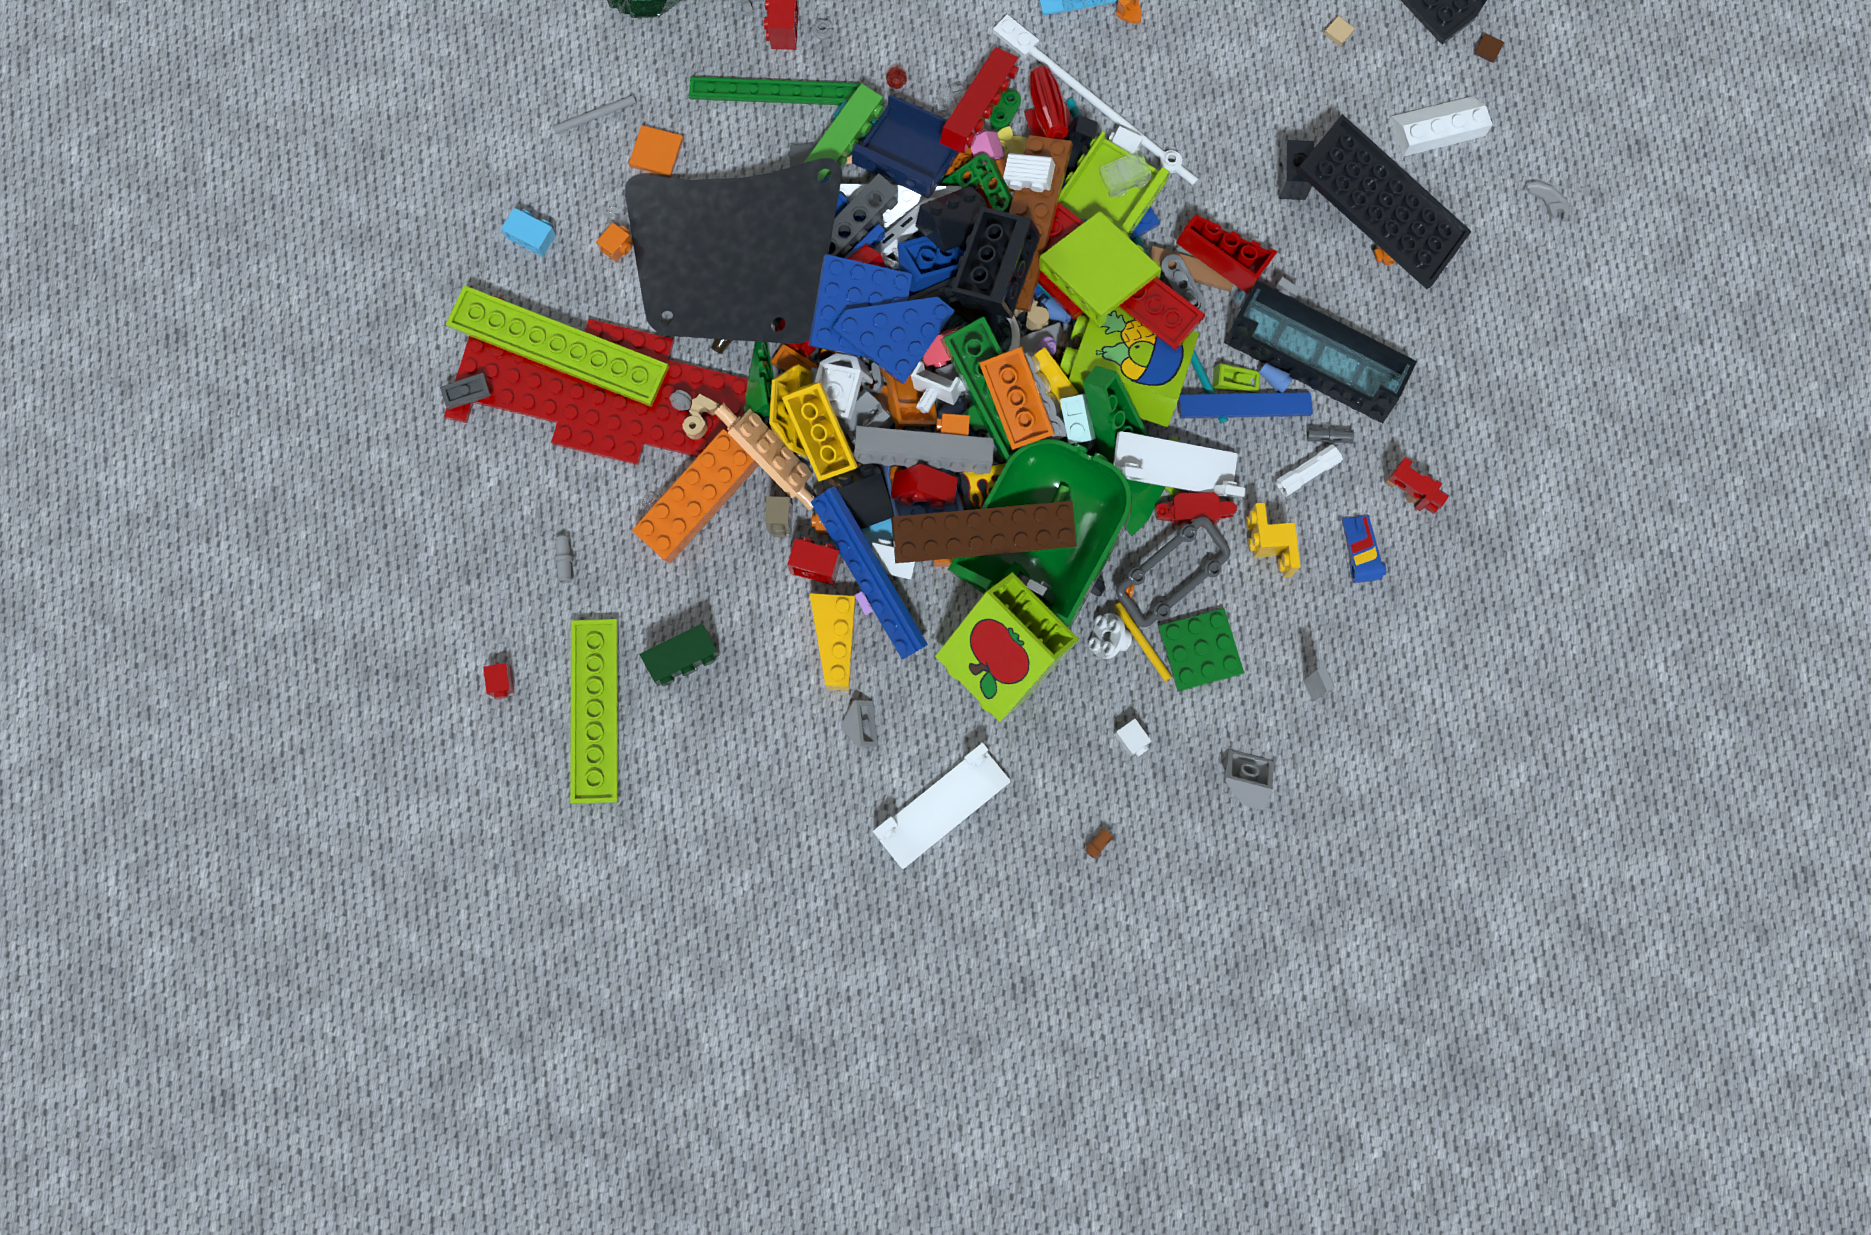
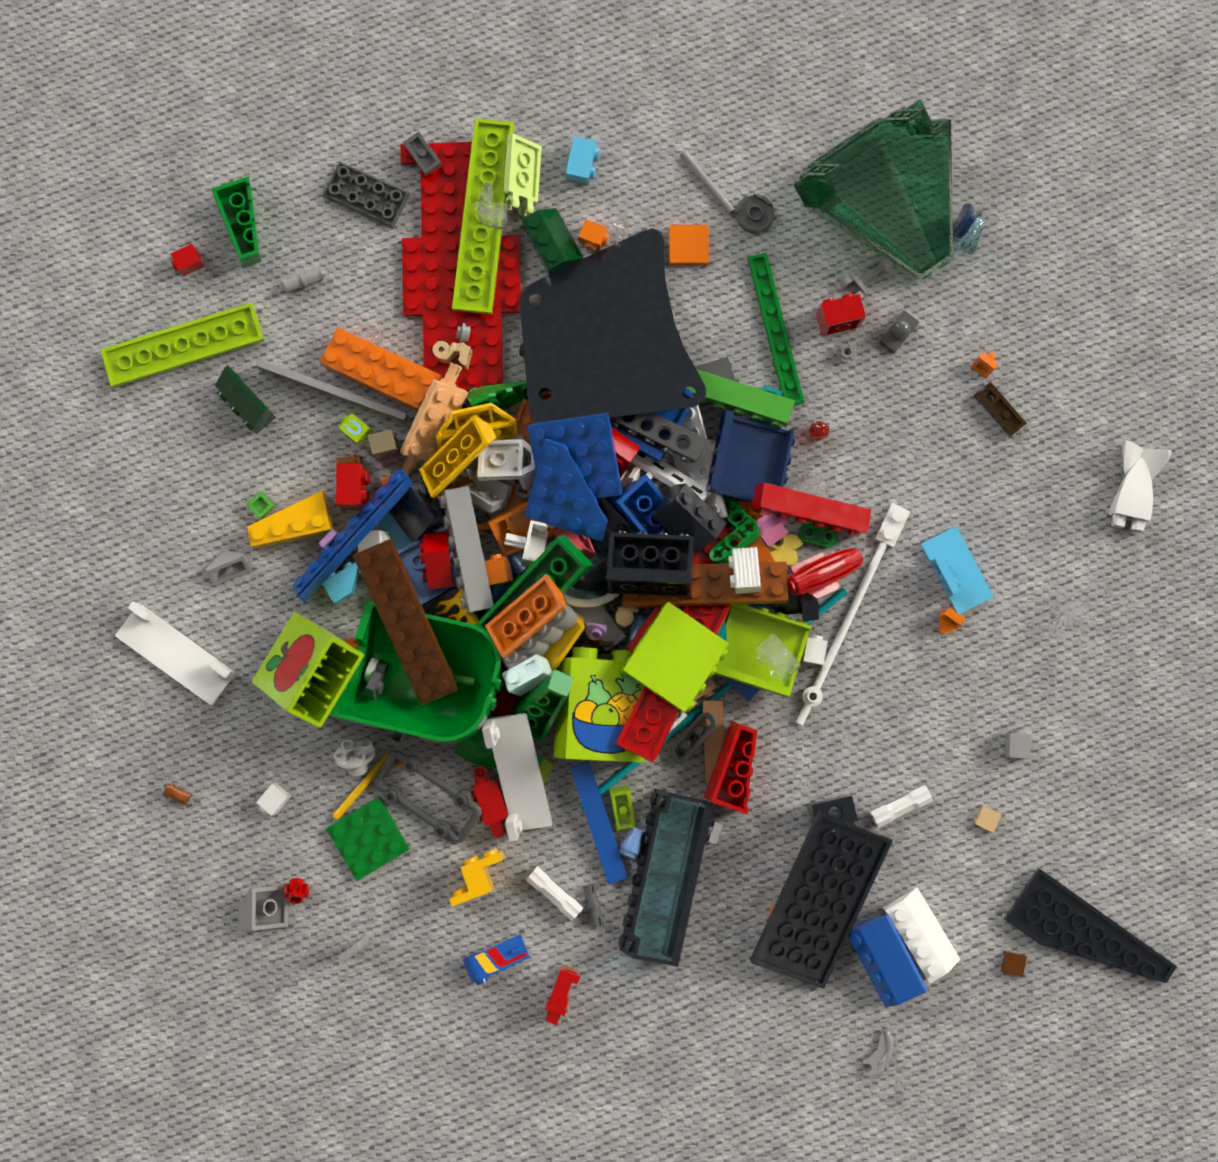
camera: 75 degrees right, 5 degrees up
(473, 609) = (238, 214): none -> green wedge
(488, 468) = (366, 194): none -> dark grey tile
(524, 294) = (522, 174): none -> yellowish green tile
(558, 334) = (489, 213): none -> clear brick
(606, 288) = (551, 239): none -> dark green slope
(644, 77) = (755, 213): none -> dark grey tile
(699, 559) = (332, 391): none -> light grey tile
(749, 546) = (355, 429): none -> lime brick
(782, 568) = (355, 459): none -> dark orange pin
(803, 670) = (261, 505): none -> bright green plate
(917, 601) = (343, 584): none -> medium azure slope
(1238, 738) = (296, 891): none -> red gear
(1302, 92) = (901, 806): none -> white axle
(1460, 158) = (887, 961): none -> blue slope

